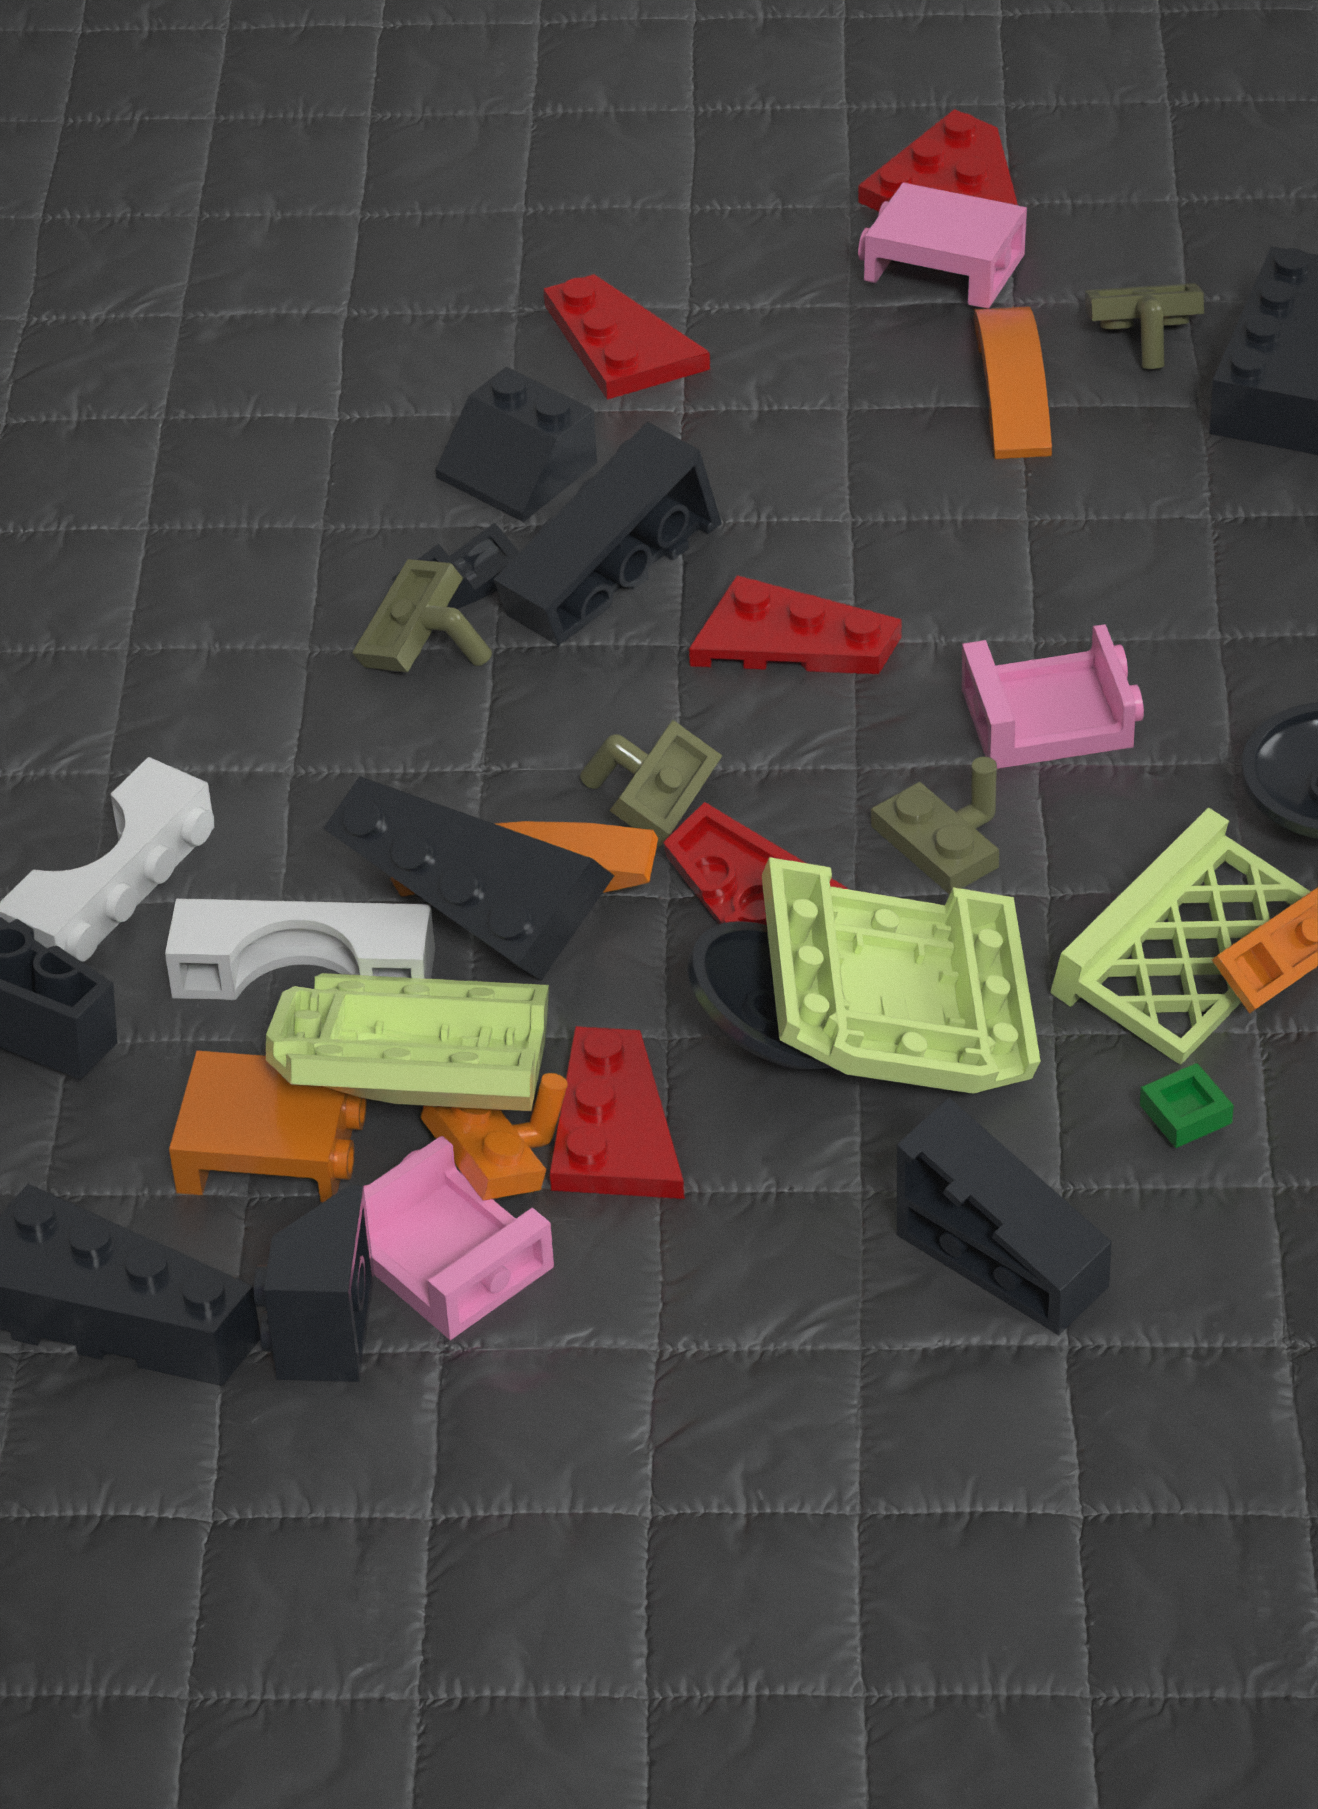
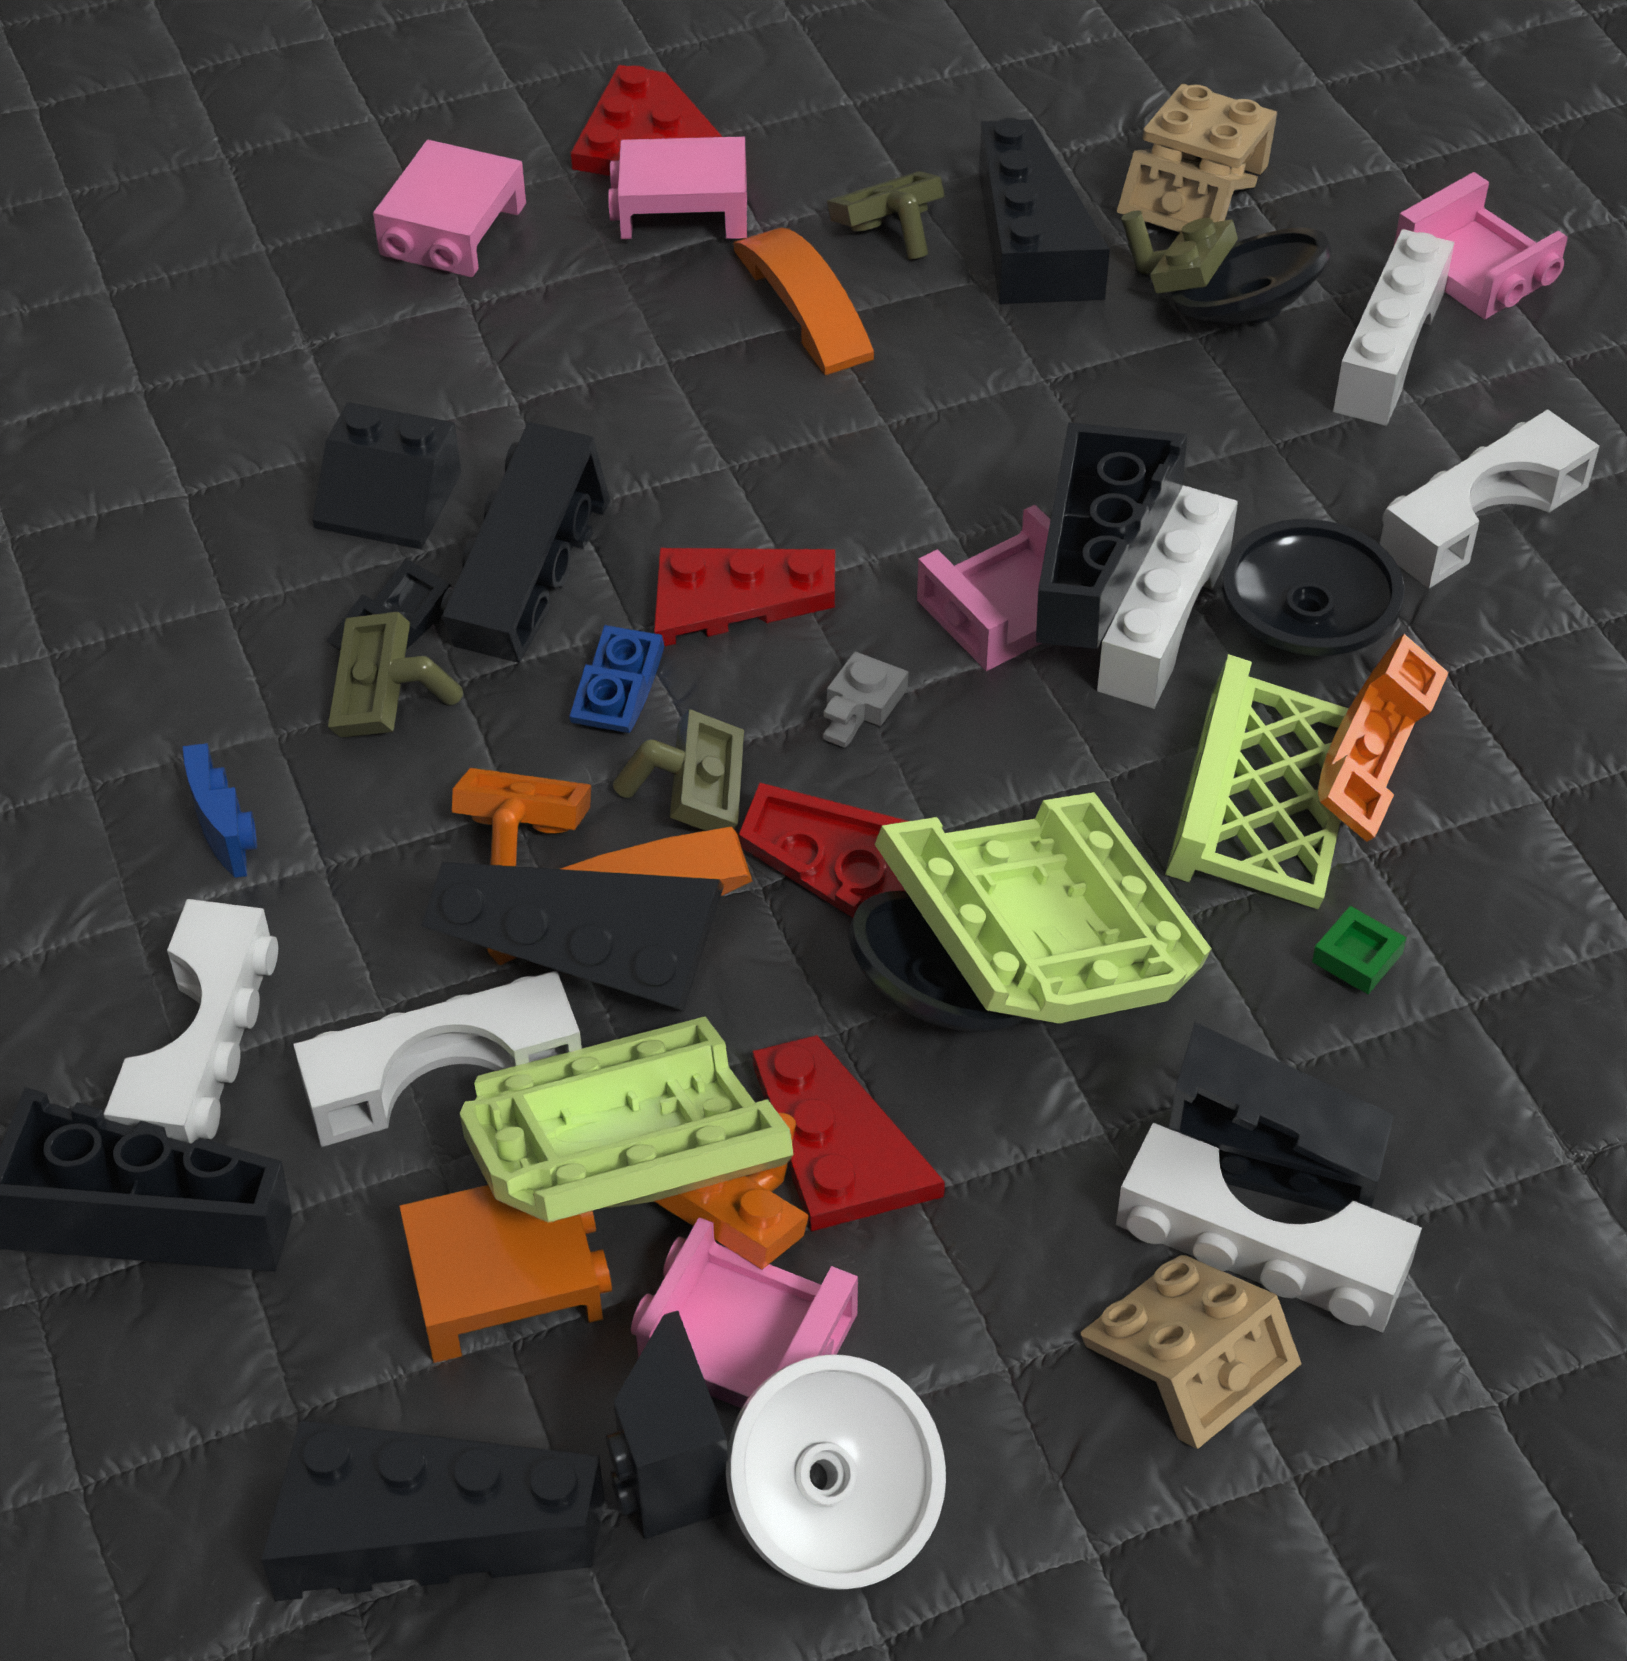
camera: 25 degrees left, 5 degrees up
(218, 686) = (218, 810): none -> blue slope
(457, 1318) = (879, 1467): none -> white dish
(475, 754) = (511, 798): none -> orange plate
(620, 339) = (422, 349): red wing -> none
(637, 684) = (618, 679): none -> blue slope
(706, 206) = (446, 206): none -> bright pink panel
(830, 1379) = (1202, 1339): none -> tan bracket
(853, 754) = (862, 692): none -> light grey plate
(939, 838) = (981, 750): olive plate -> none
(1004, 1354) = (1340, 1264): none -> white arch
(1136, 654) = (1103, 521): none -> black wedge
(1145, 773) = (1153, 615): none -> white arch

